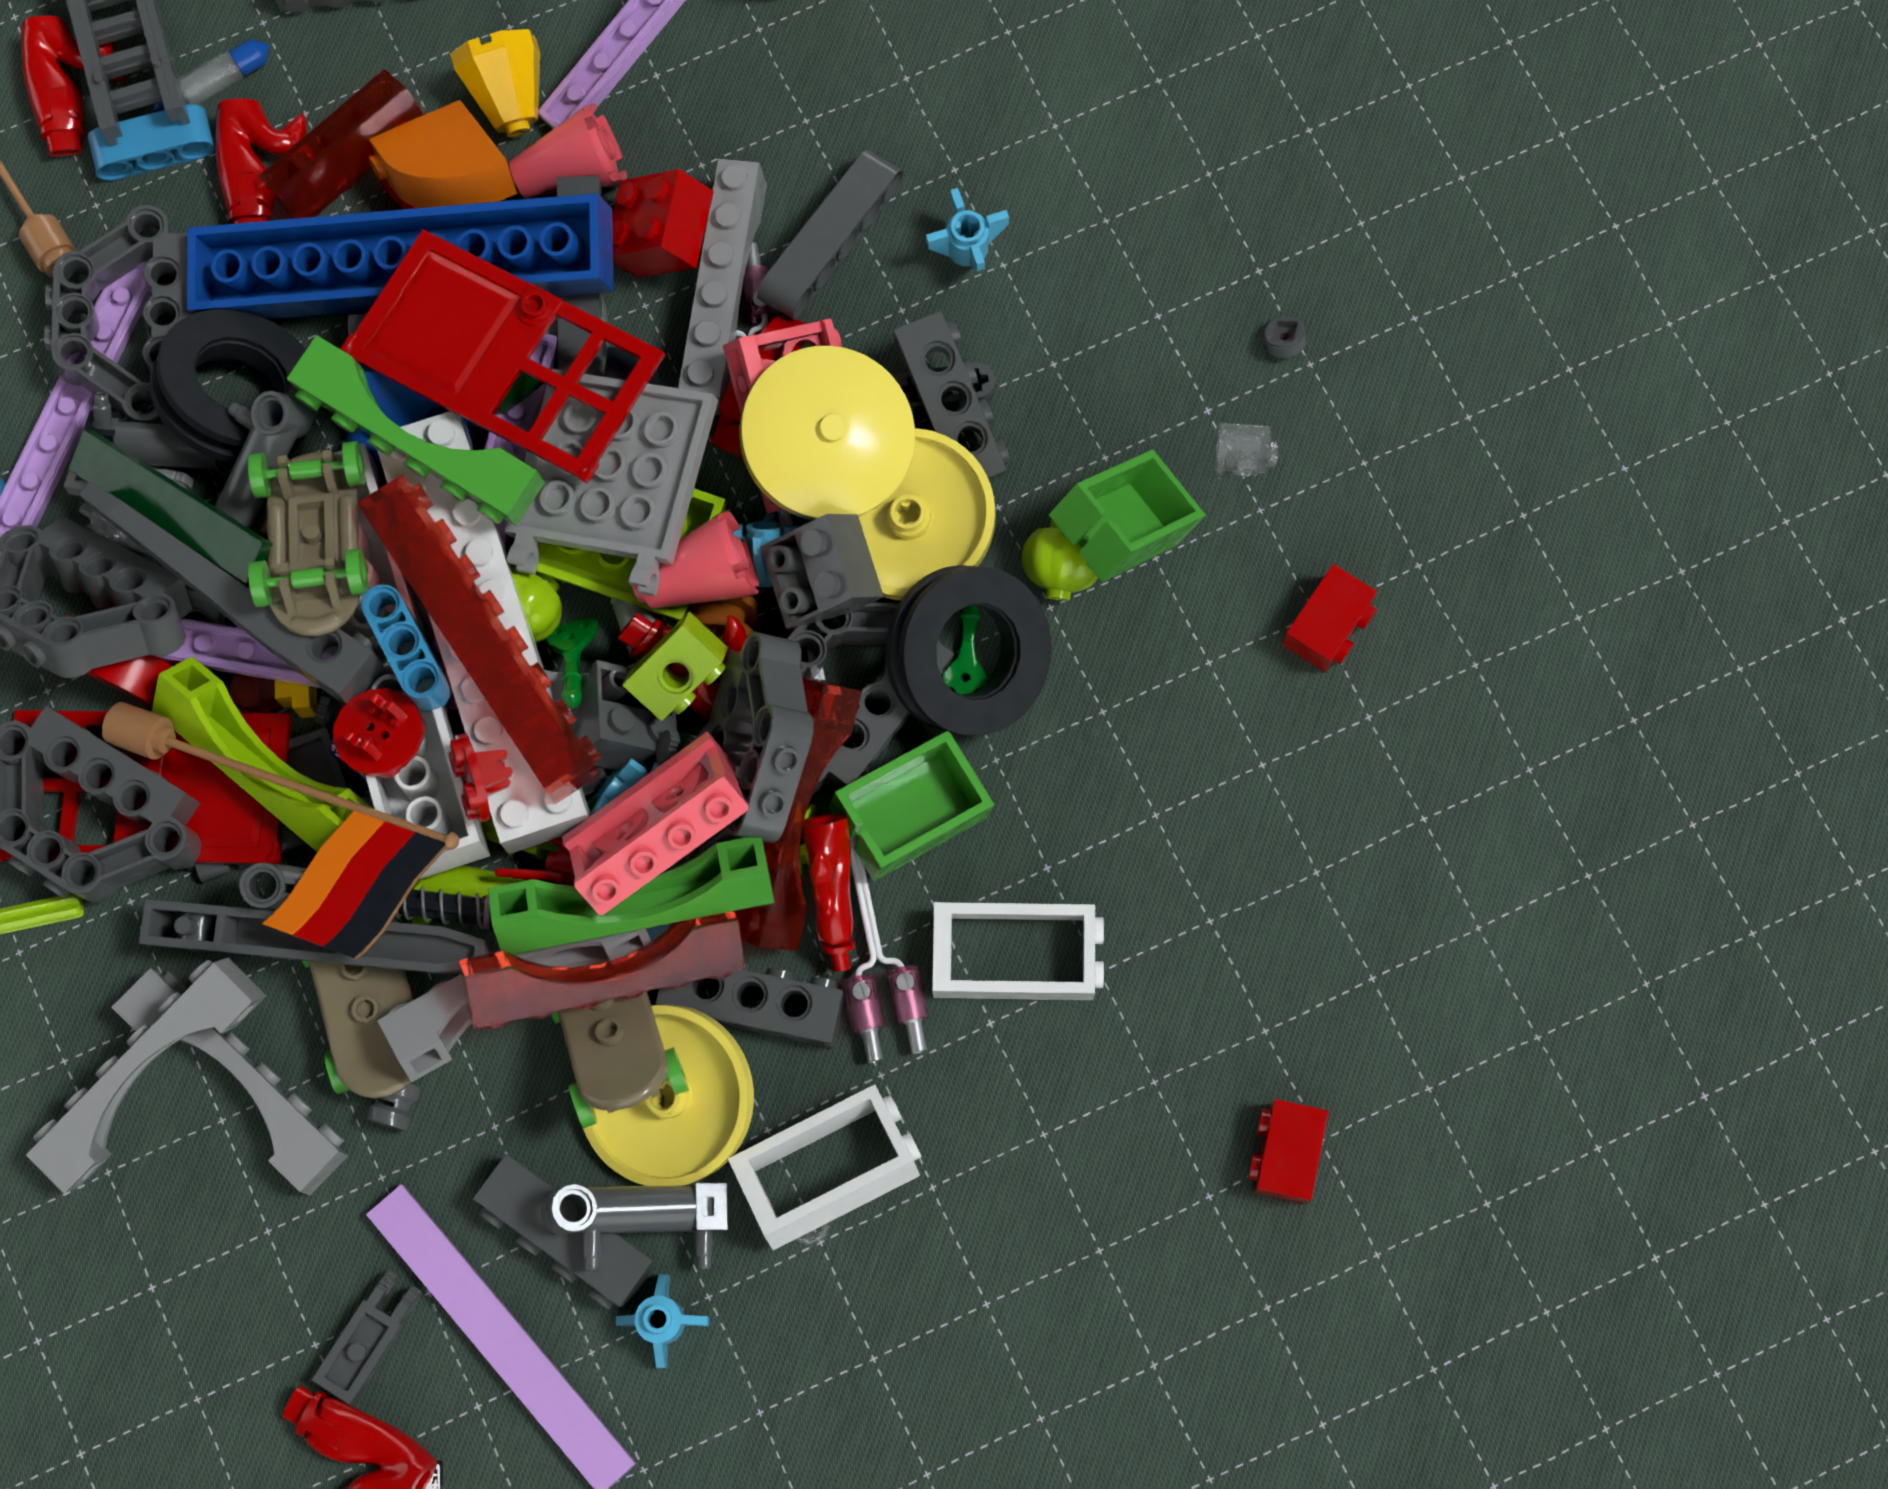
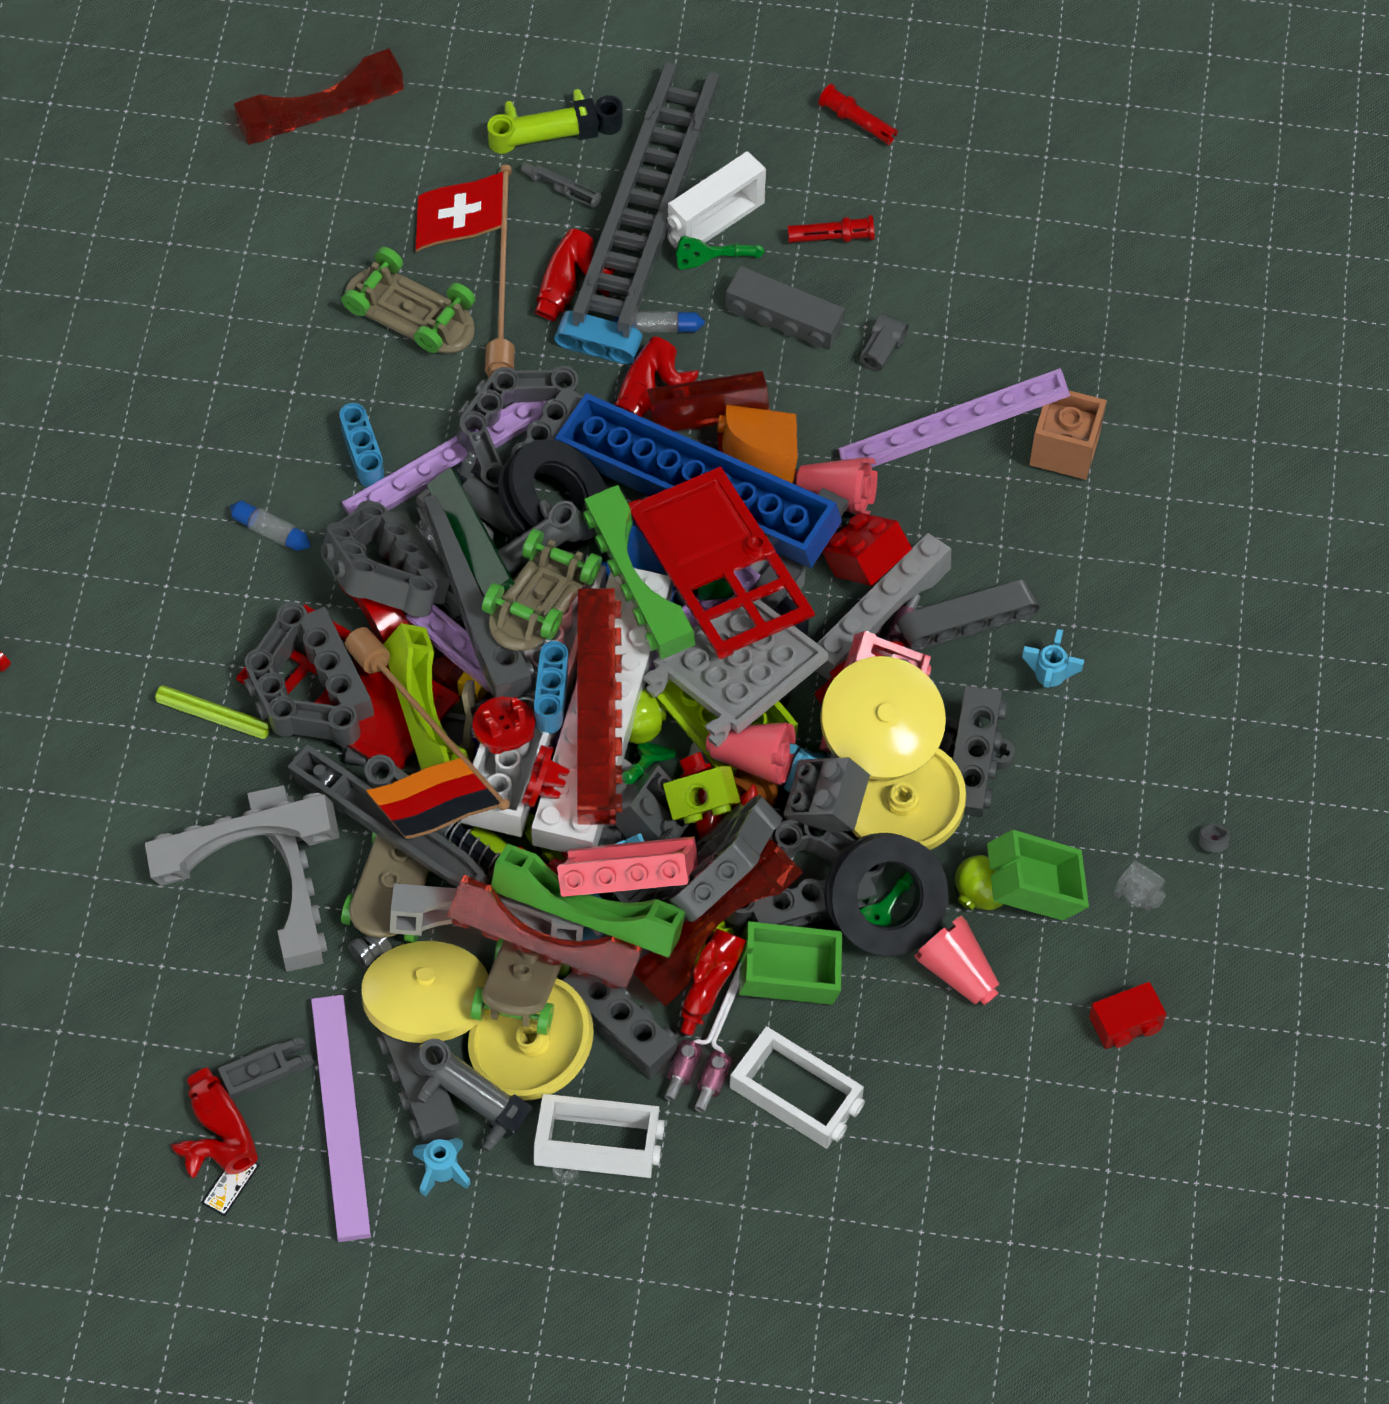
camera: 30 degrees right, 15 degrees down
(316, 729) = (469, 703): none -> dark tan piece
(498, 1121) = (423, 991): none -> light yellow dish
(503, 78) = (830, 416): yellow cone -> none
(1101, 676) = (960, 962): none -> coral cone
(1288, 1151) = (886, 1304): red brick -> none

